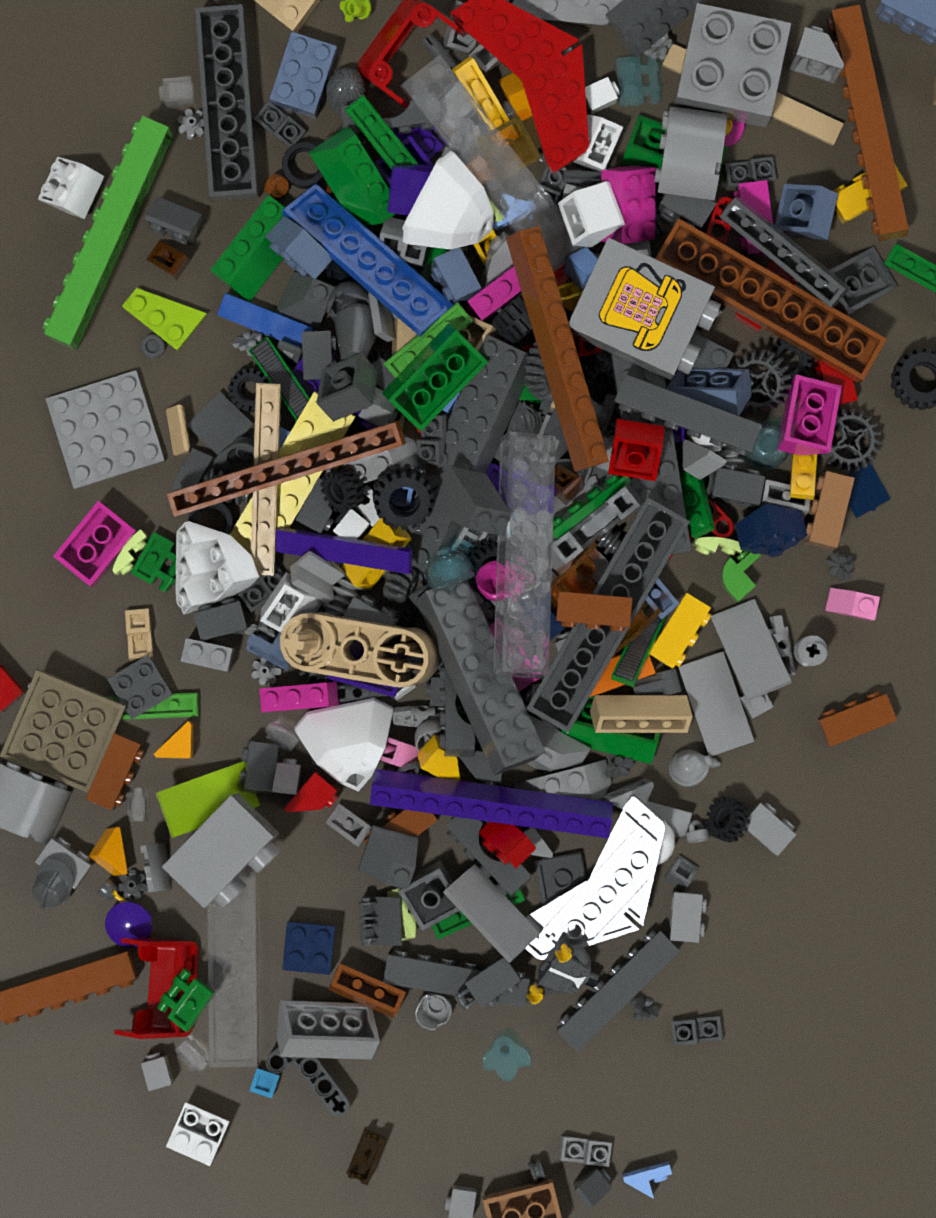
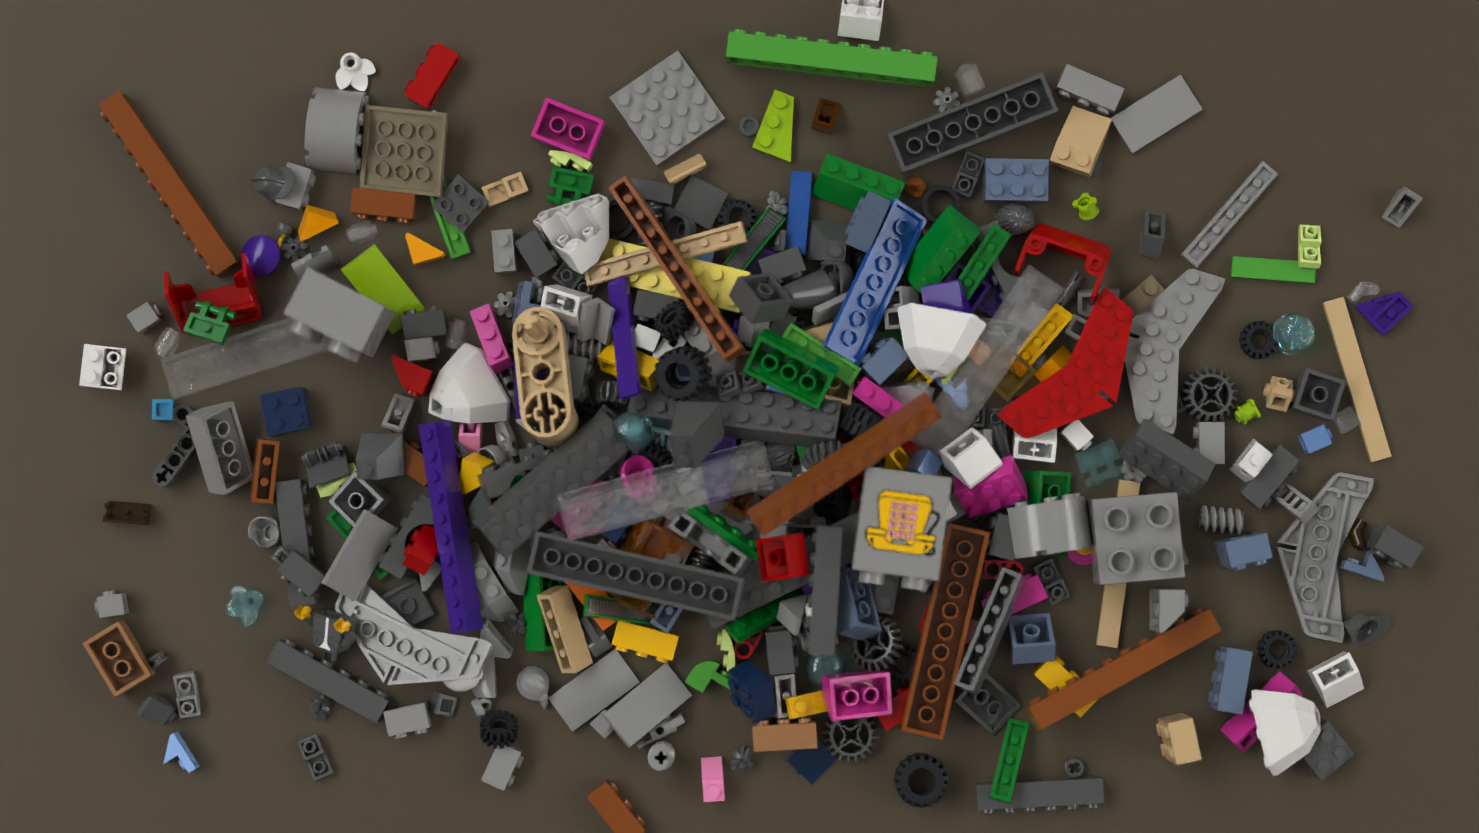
camera: 70 degrees right, 0 degrees up
(174, 220) = (860, 110): dark grey slope -> none
(594, 610) = (634, 562): dark orange brick -> none

